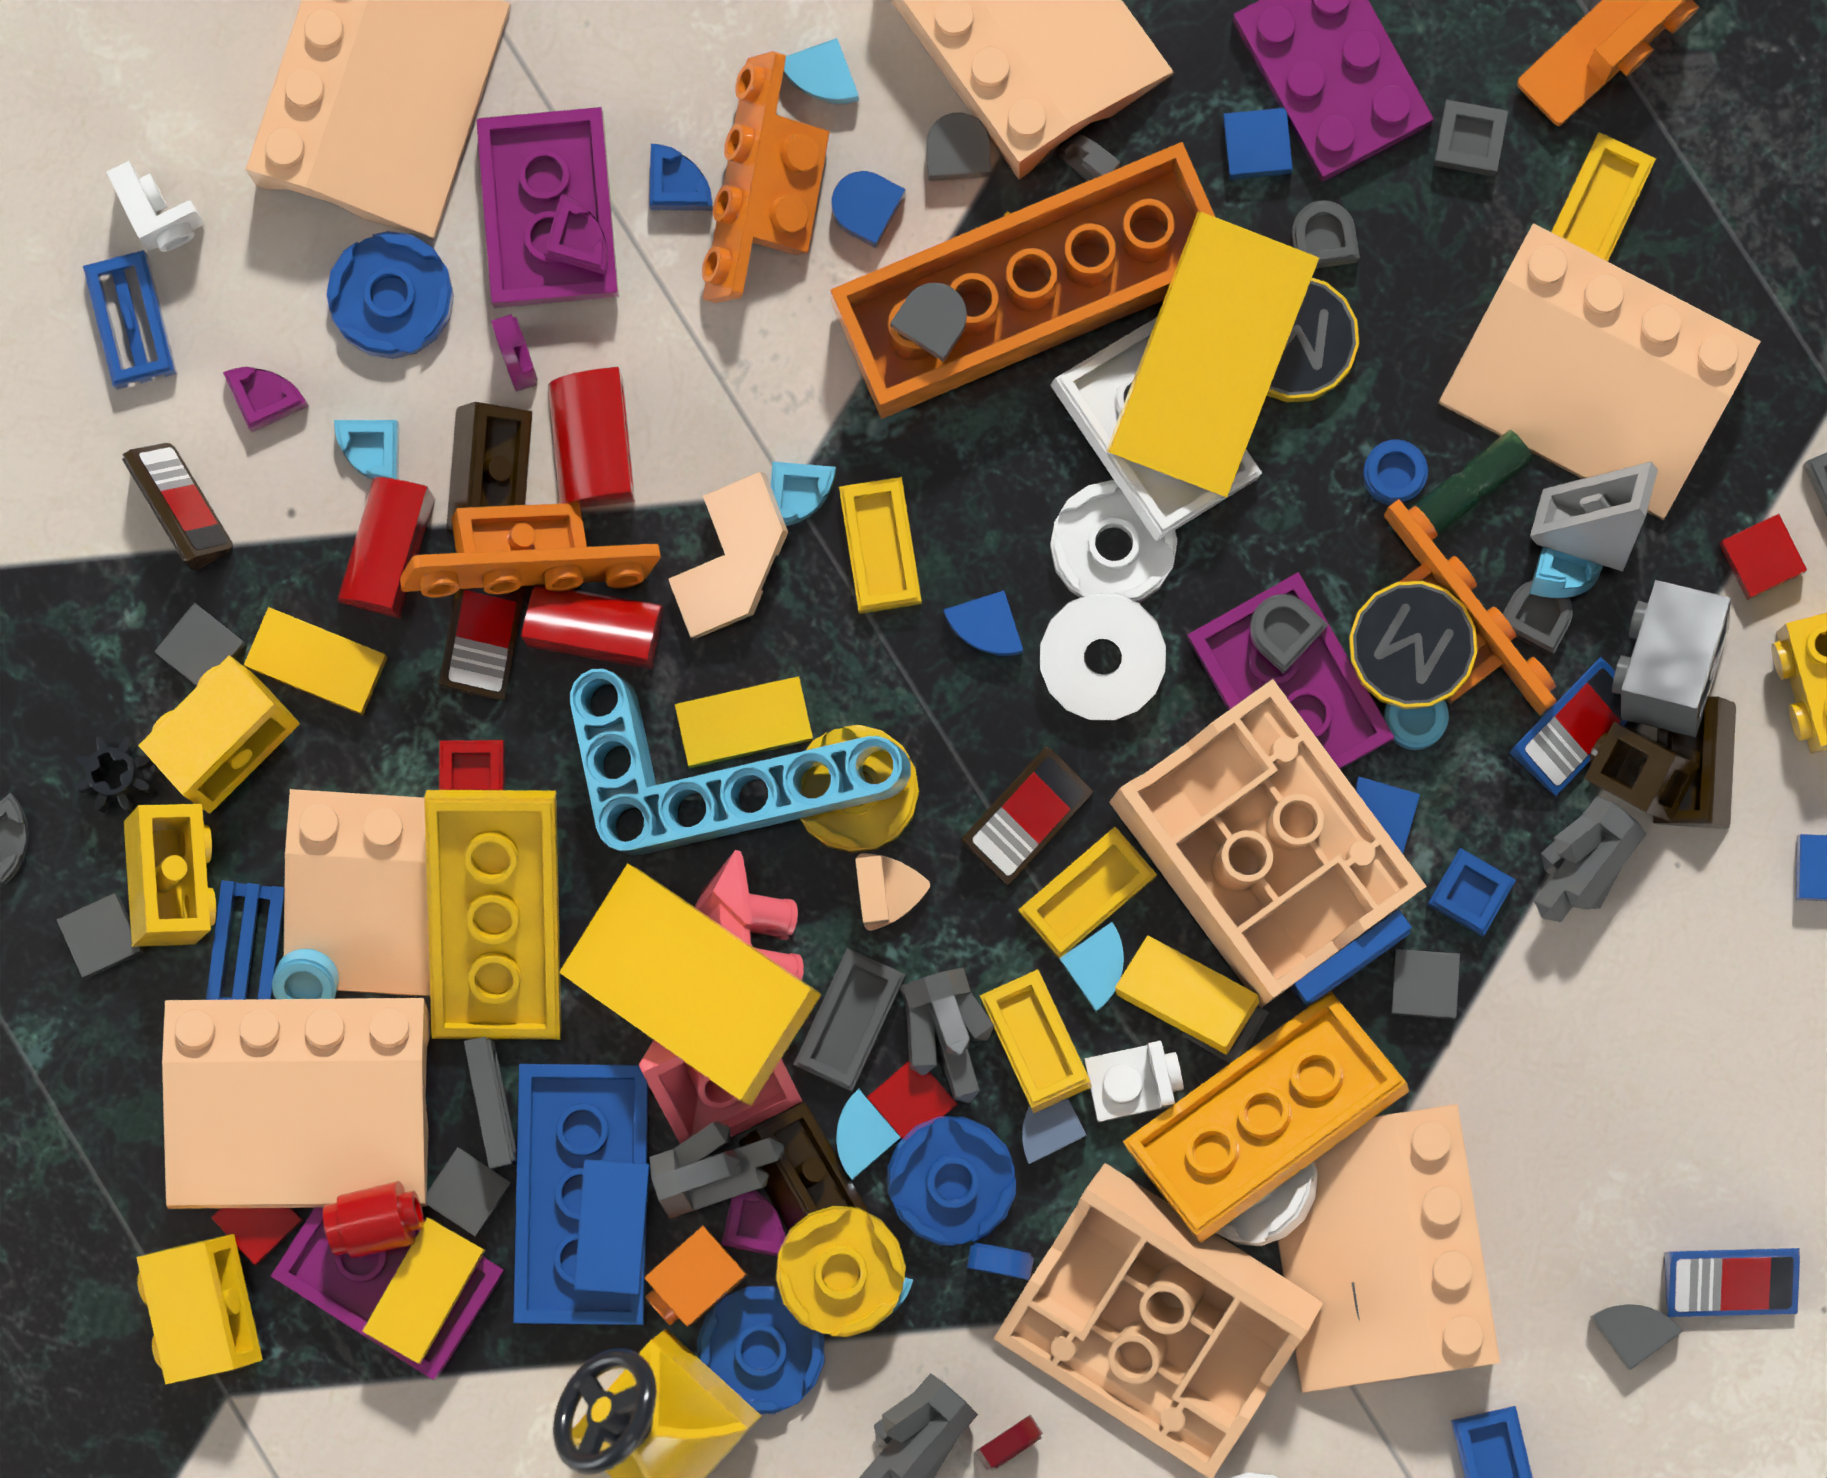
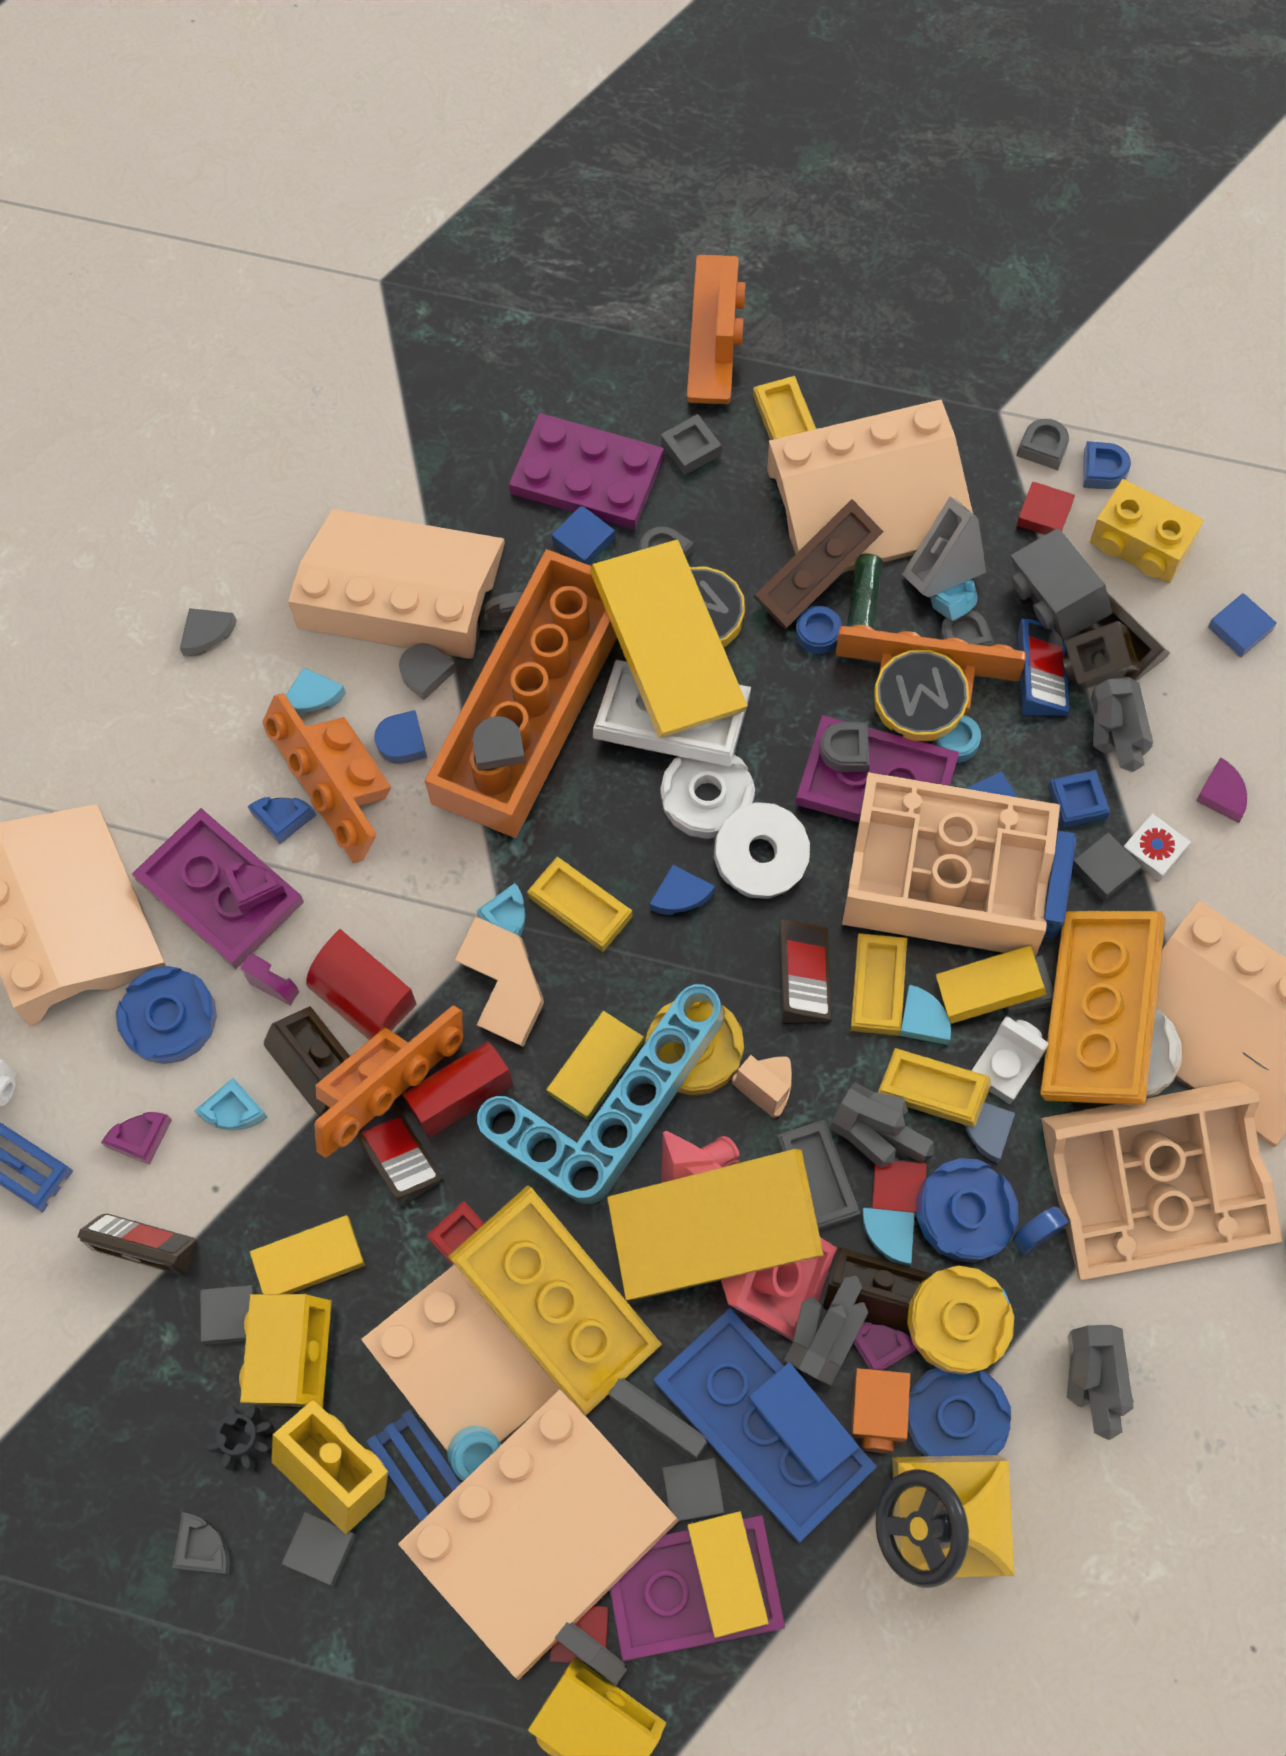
camera: 45 degrees left, 15 degrees down
(246, 1245) = (592, 1652): none -> dark grey tile
(373, 1220) = (656, 1558): red brick -> none
(384, 544) = (290, 1152): red brick -> none
(1009, 1443) = (1153, 1331): dark red tile -> none
(1456, 404) = (818, 564): none -> reddish brown plate
(1493, 1010) = (1156, 846): none -> white tile
(1622, 1019) = (1225, 791): none -> magenta tile

